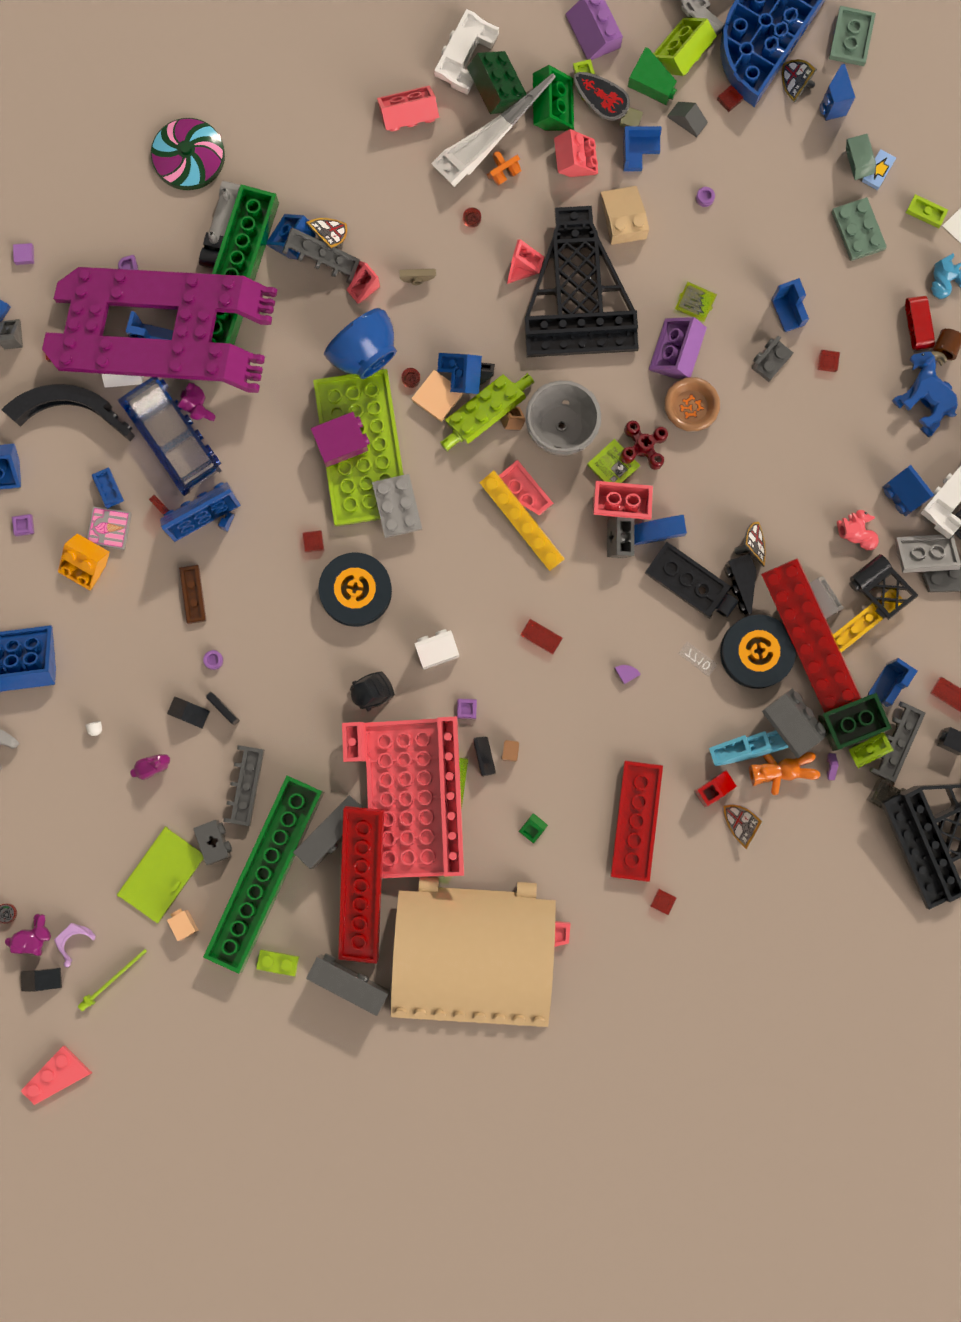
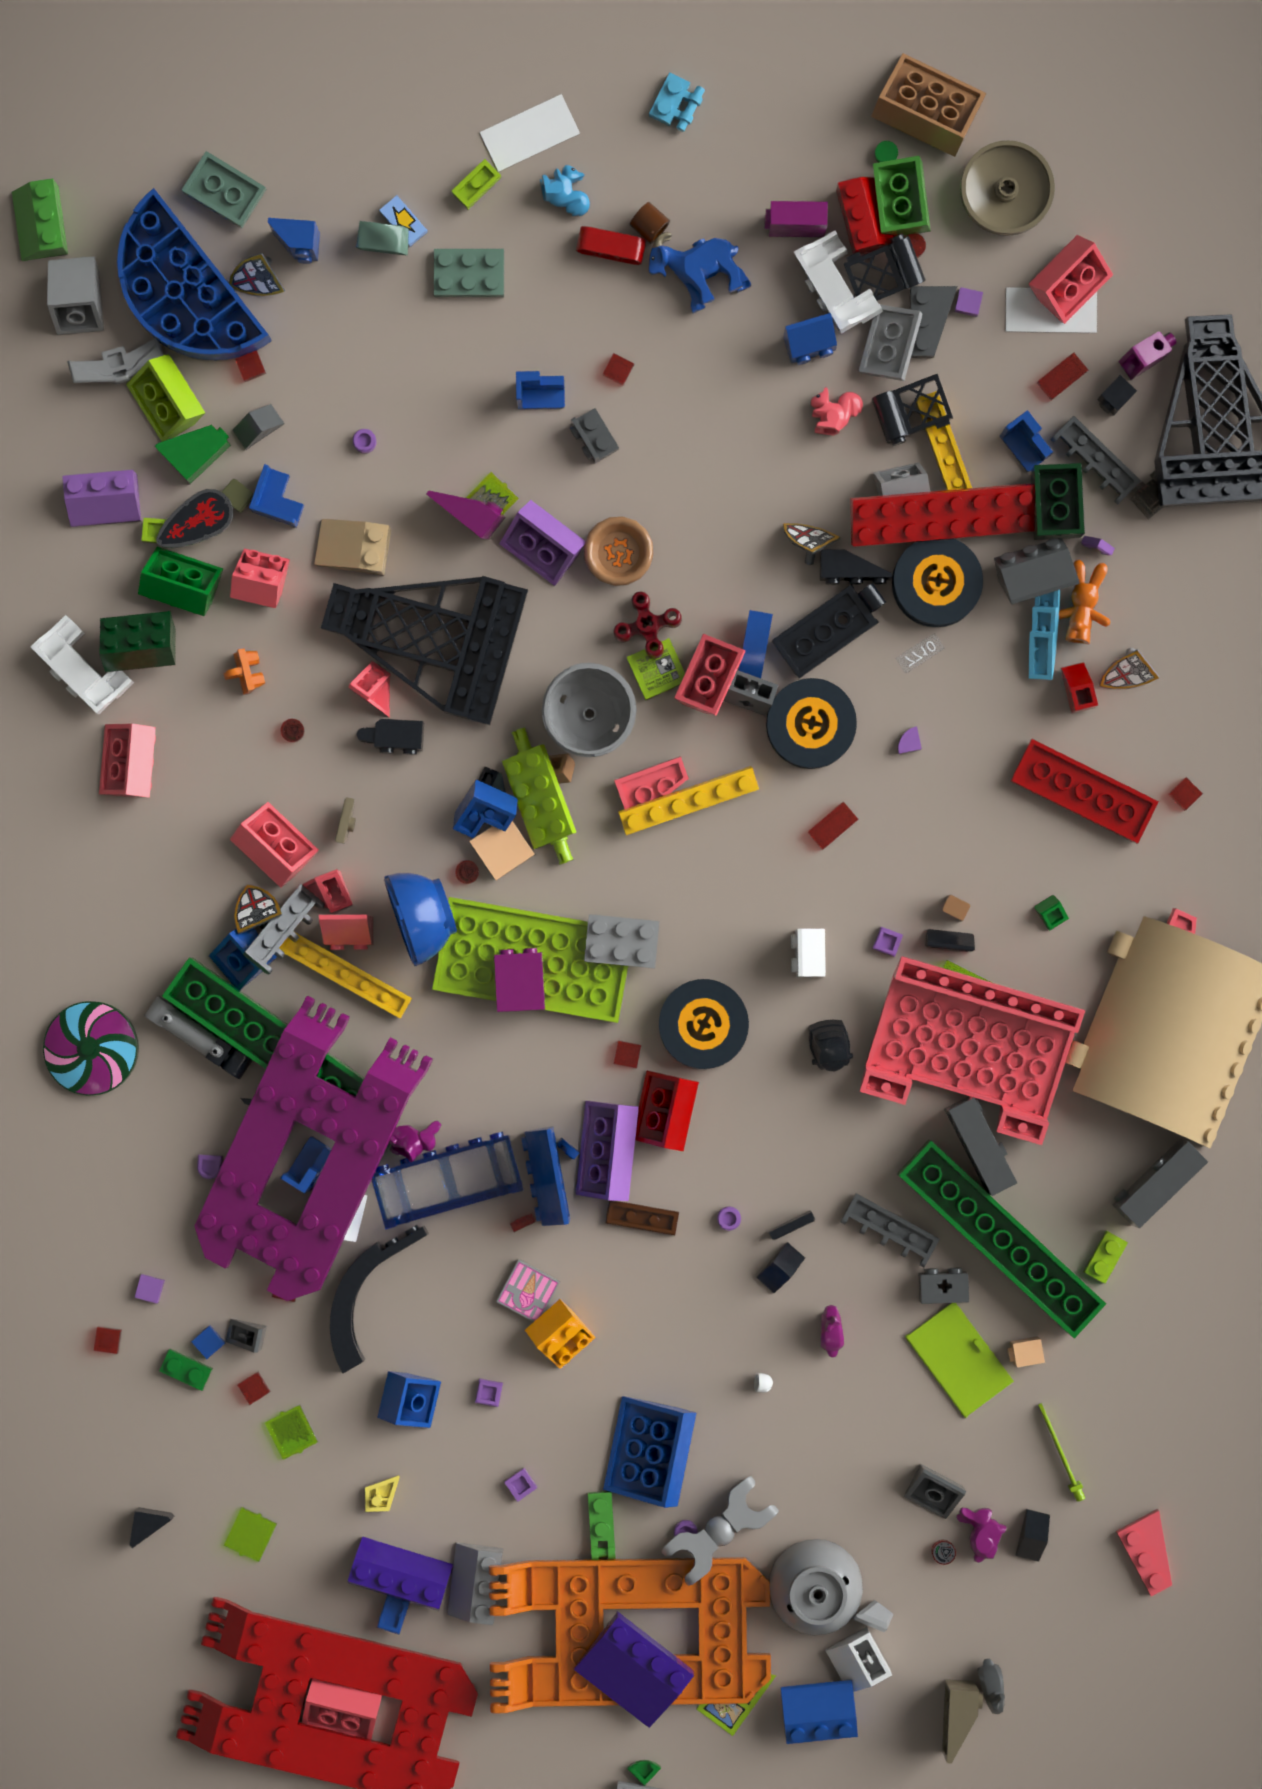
camera: 65 degrees left, 5 degrees up
(51, 890) = (934, 1491): none -> dark grey slope
(71, 930) = (989, 1480): lavender helmet -> none
(107, 487) = (479, 1277): blue plate -> none
(234, 550) = (607, 1151): none -> medium lavender slope
(279, 583) = (665, 1110): none -> red slope
(303, 315) = (347, 975): none -> yellow plate
(335, 300) = (347, 930): none -> coral slope
(361, 884) = (1053, 1131): red plate -> none
(382, 230) = (274, 844): none -> coral slope
(468, 153) = (214, 709): white plate -> none
(495, 290) = (394, 735): none -> black hinge
(636, 591) = (818, 696): none -> black wheel
(679, 289) = (476, 515): none -> magenta slope
(871, 750) = (1095, 494): lime plate -> none

